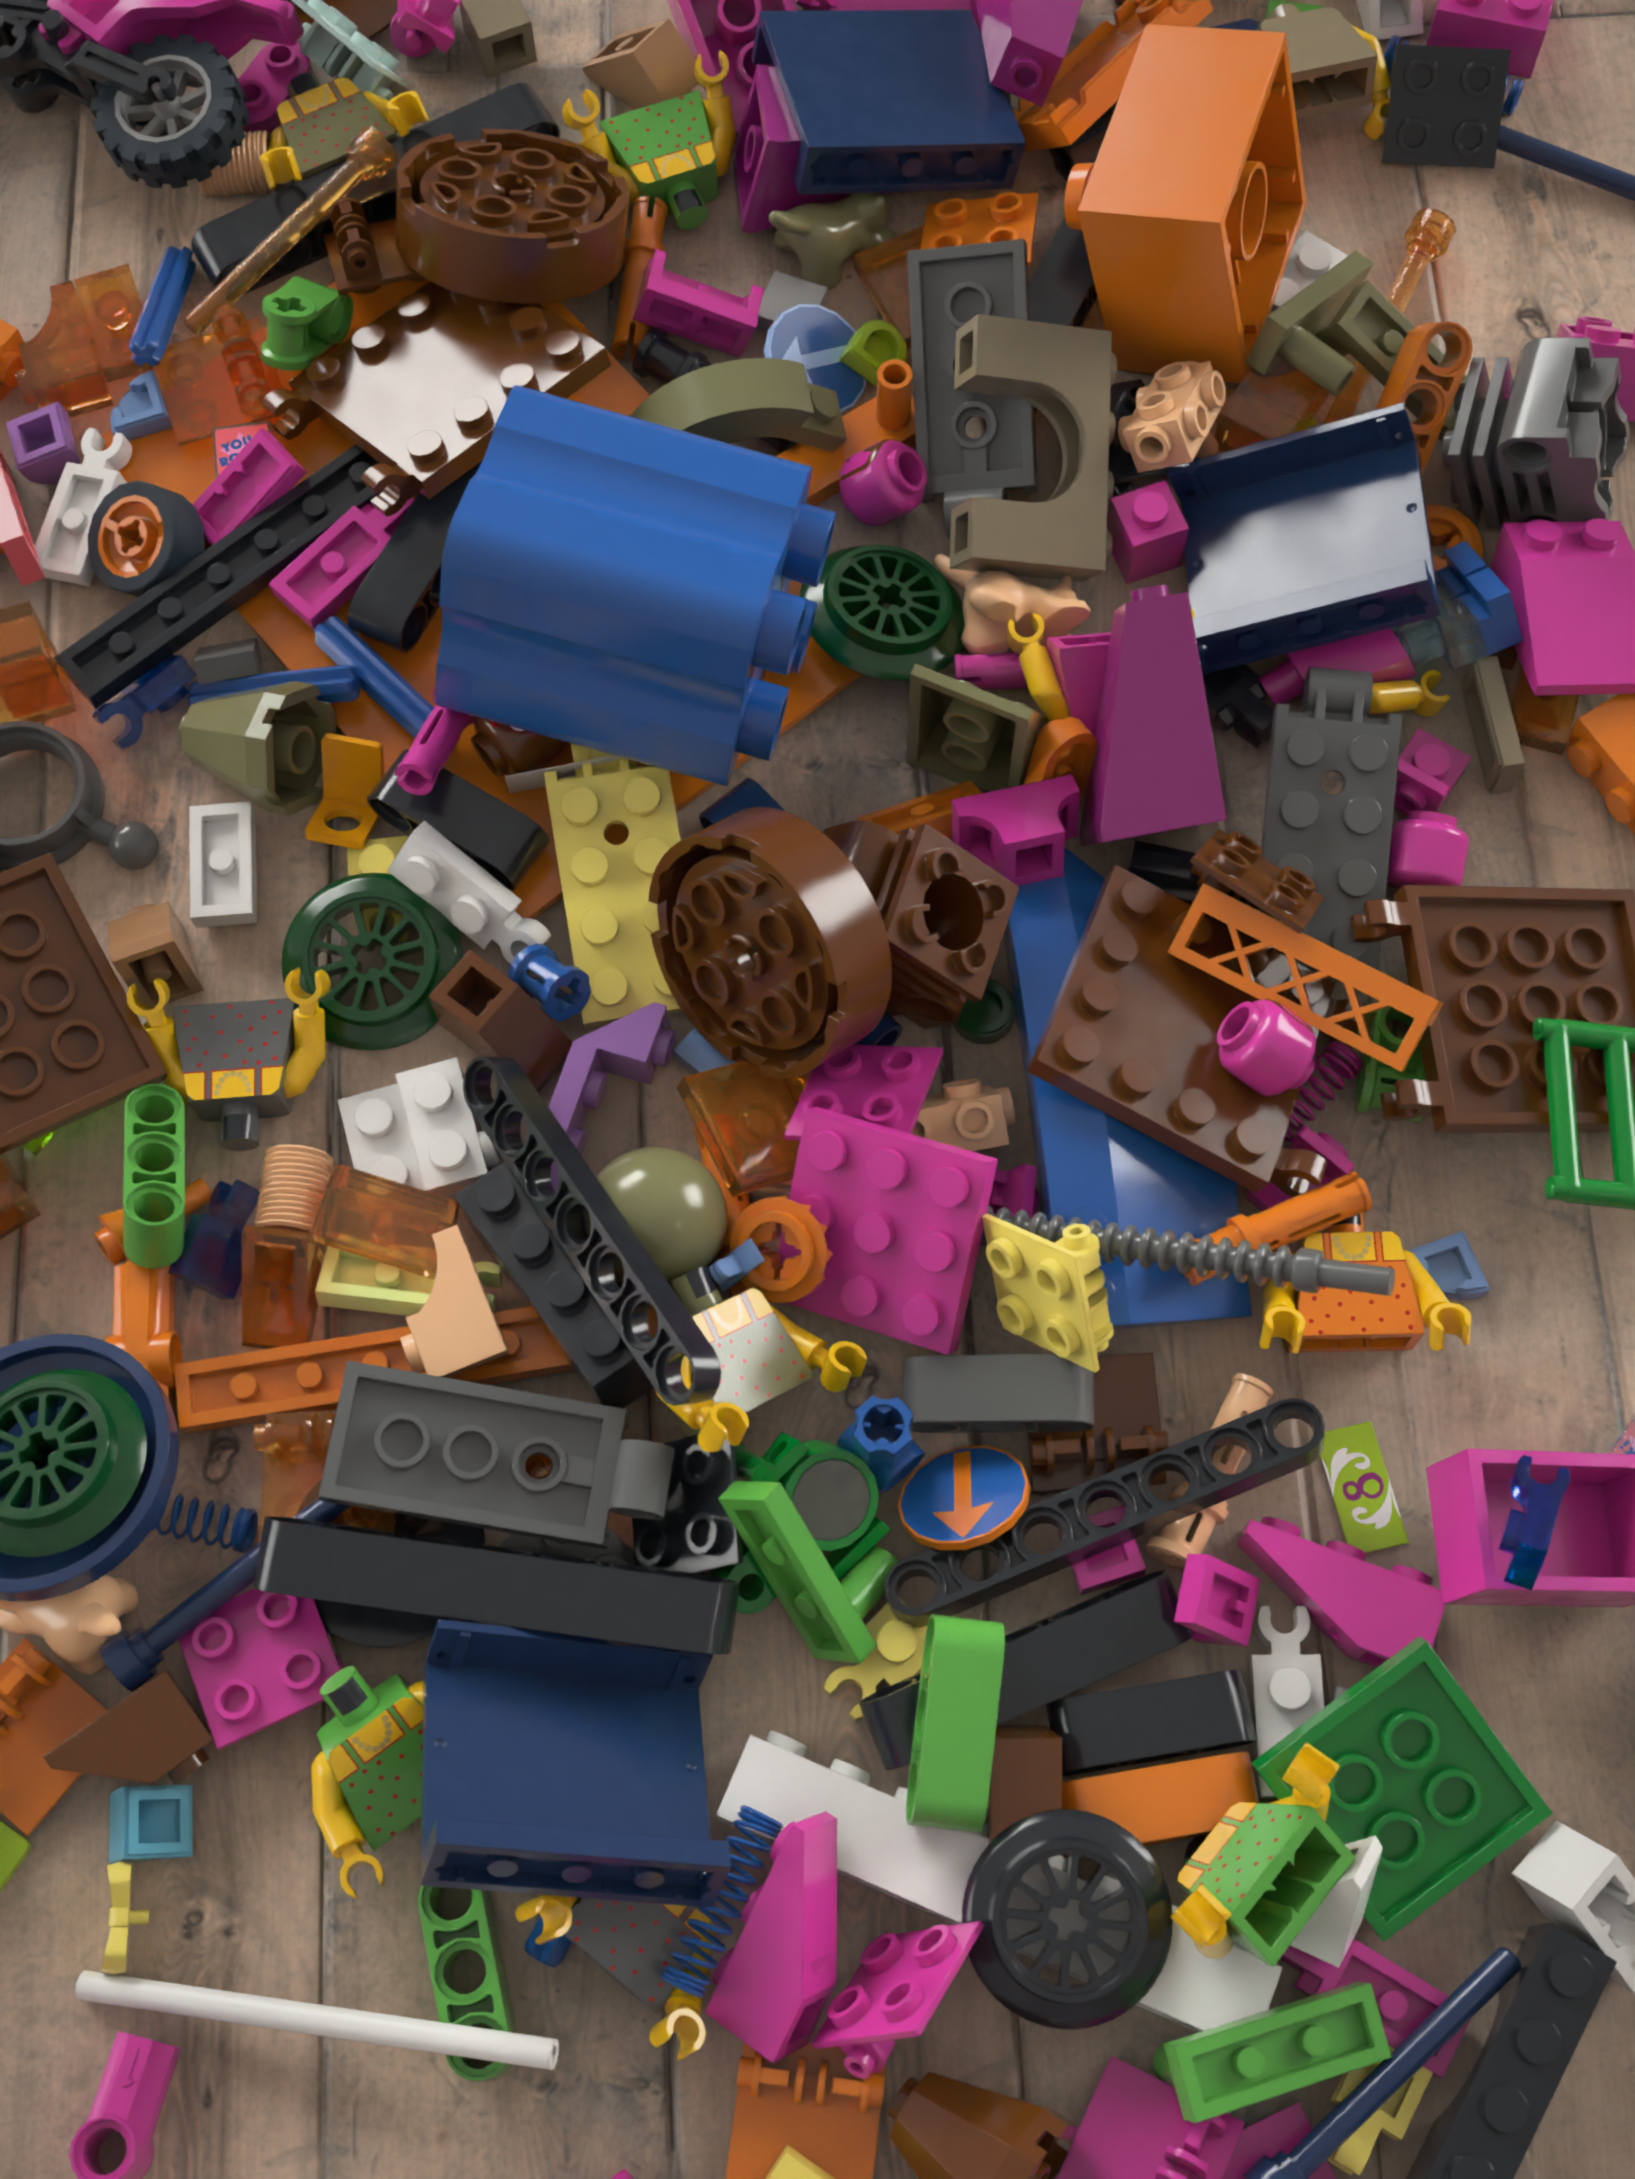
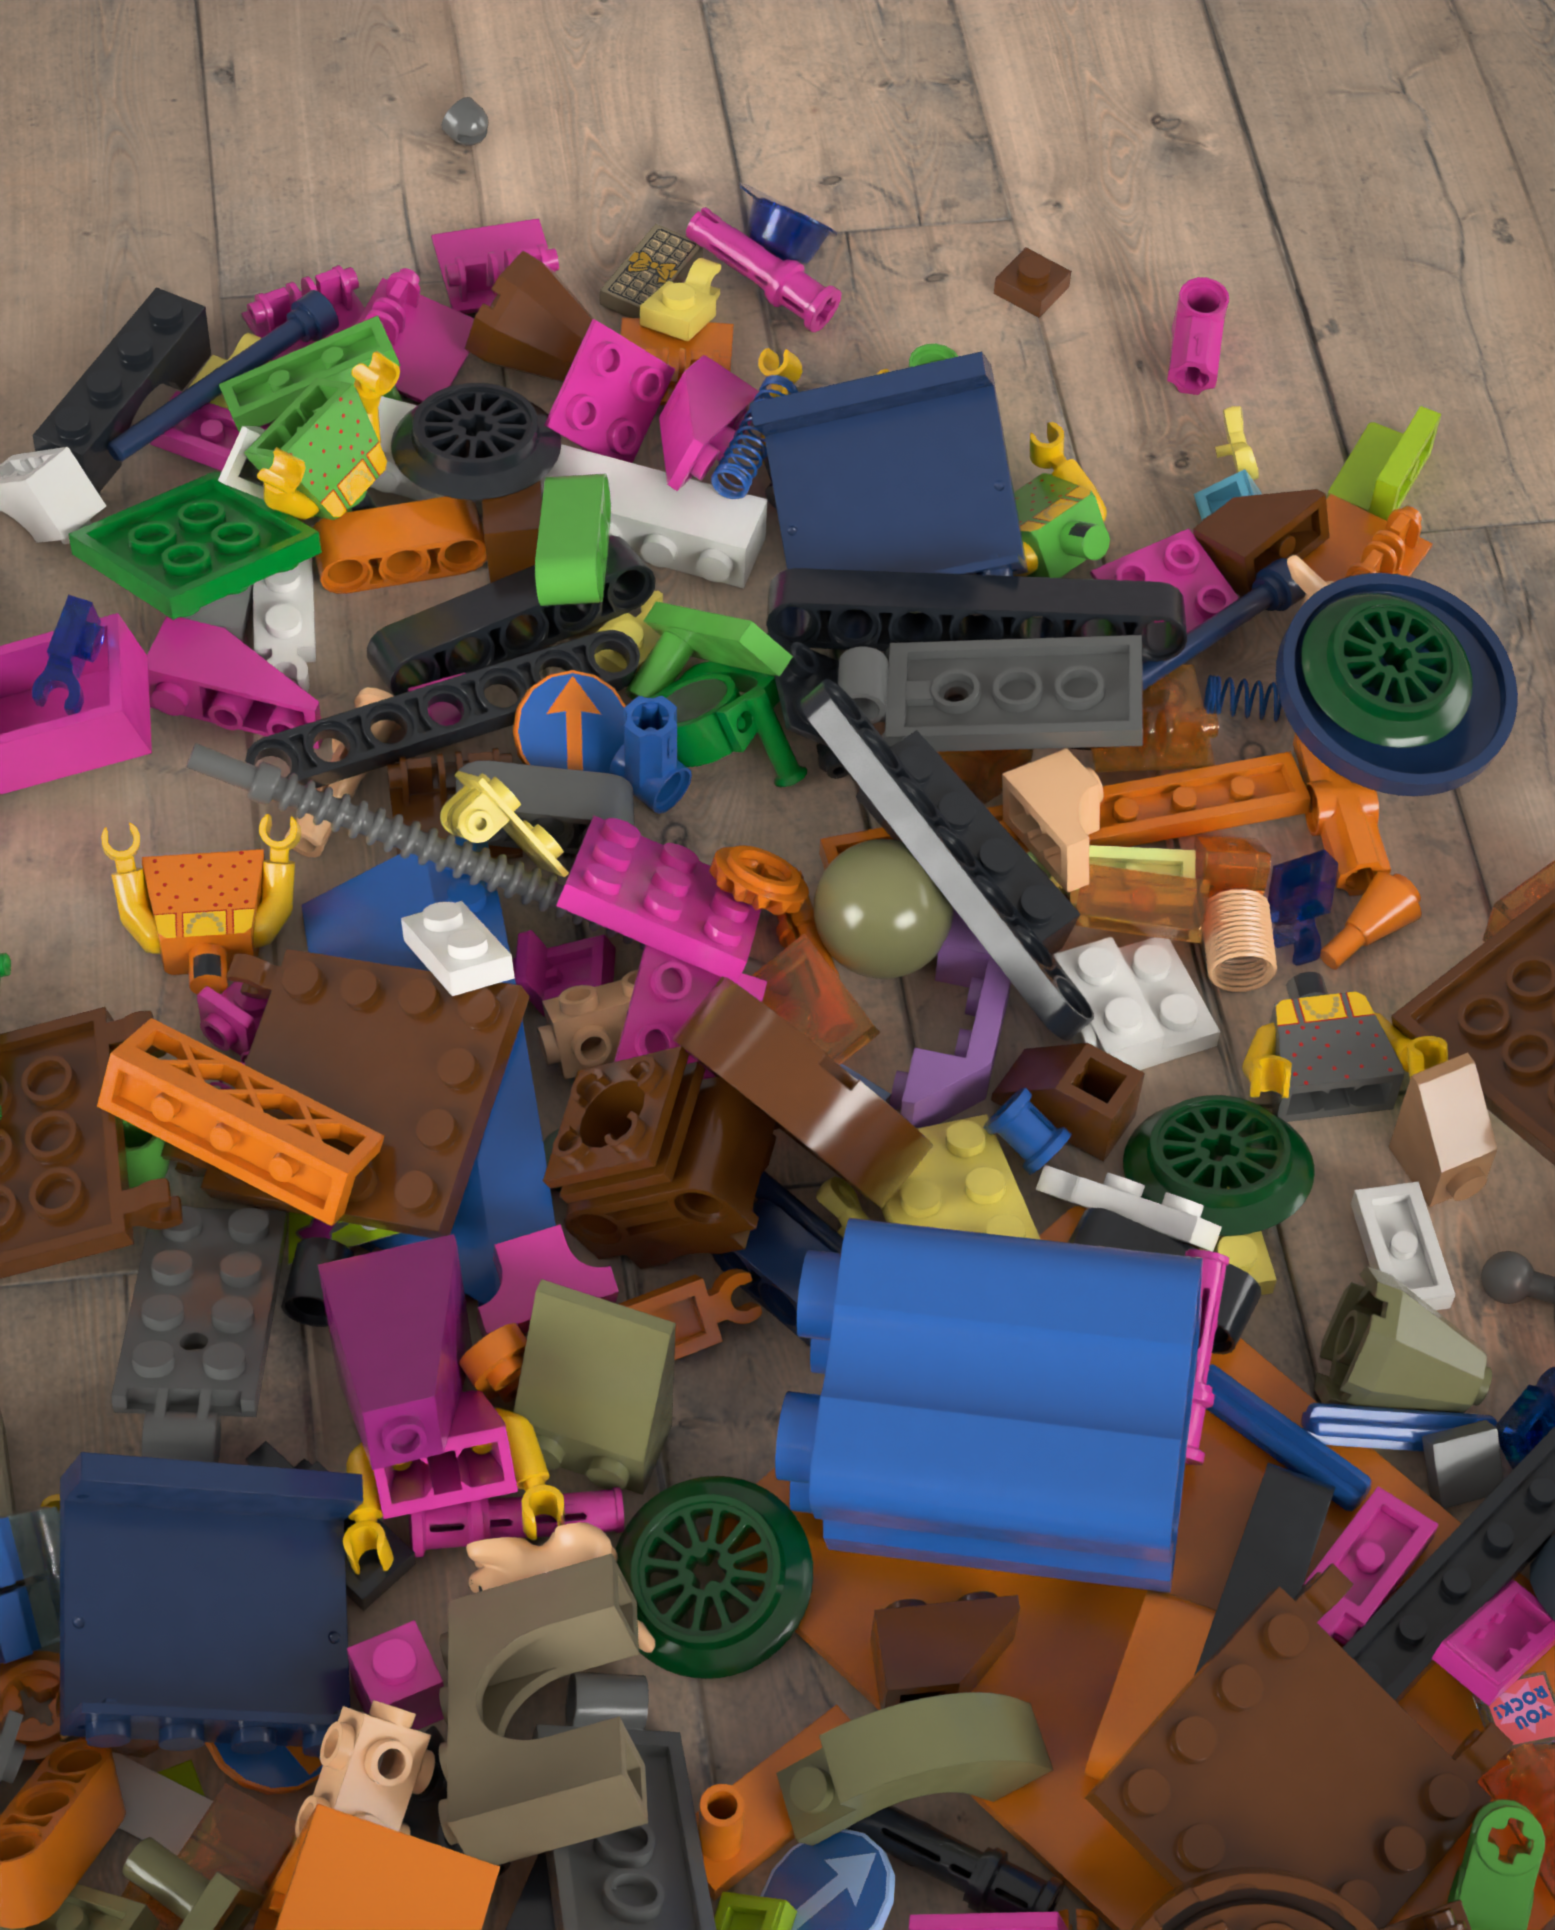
camera: 170 degrees right, 15 degrees down
(154, 1176) = (1380, 895): bright green beam -> none
(319, 2020) = (1066, 376): white piece -> none
(349, 775) = (1289, 1336): light orange bracket -> none
(736, 1265) = (804, 859): medium blue piece -> none
(758, 1358) = (792, 799): torso -> none
(882, 482) = (725, 1720): dark pink head -> none
(1099, 1121) = (457, 947): none -> white plate
(1152, 1722) = (371, 594): black beam -> none
(1216, 1601) = (346, 660): dark pink bracket -> none
(1237, 864) = (286, 1203): reddish brown hinge -> none
(1266, 1047) = (287, 1046): dark pink head -> none
(1295, 1217) = (283, 924): orange pin -> none
(1362, 1488) = (206, 800): lime sticker -> none
(1427, 773) = (77, 1420): dark pink bracket -> none
(1427, 850) = (87, 1320): dark pink head -> none
(1453, 1267) = (107, 955): medium blue tile -> none

